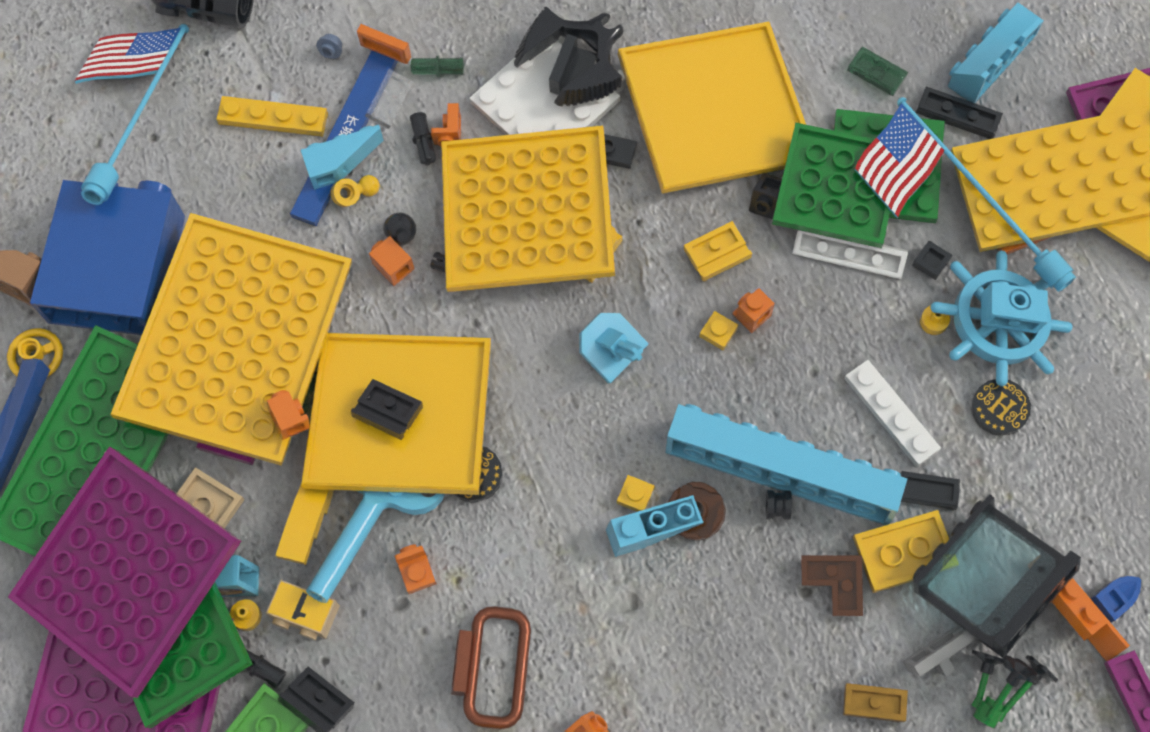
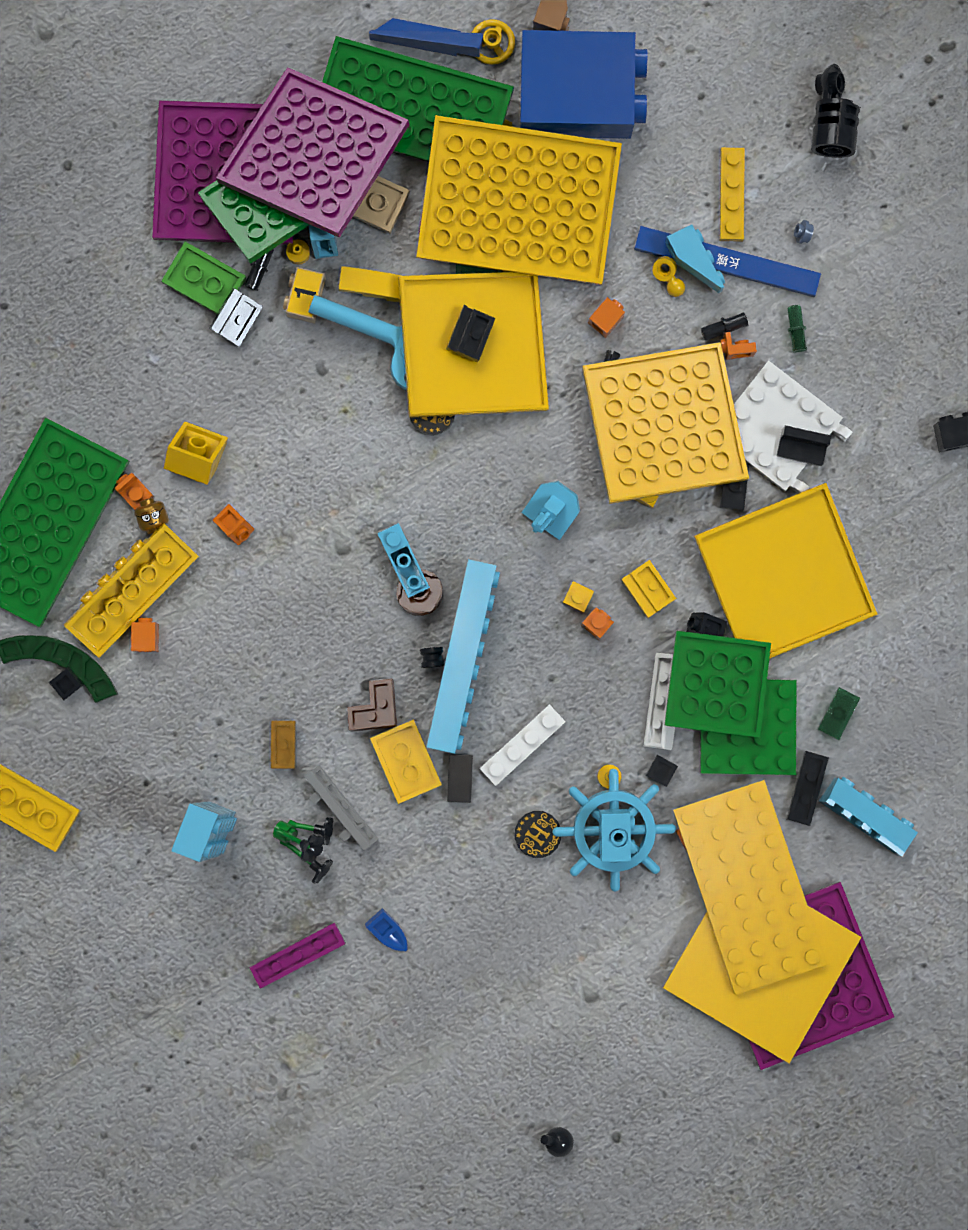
camera: 80 degrees right, 15 degrees up
(125, 57) = (770, 58): flag -> none
(287, 414) = (453, 254): orange brick -> none
(384, 44) = (807, 278): orange tile -> none
(388, 99) = (758, 291): clear plate -> none
(400, 228) = (635, 320): black piece -> none
(415, 568) = (348, 377): orange bracket -> none
(467, 667) = (274, 429): copper bar -> none
(594, 82) = (794, 470): black piece -> none
(635, 494) = (429, 543): yellow plate -> none
(906, 157) = (745, 738): flag -> none
(994, 577) = (387, 828): clear light blue panel -> none
(1089, 621) = (373, 895): orange bracket -> none

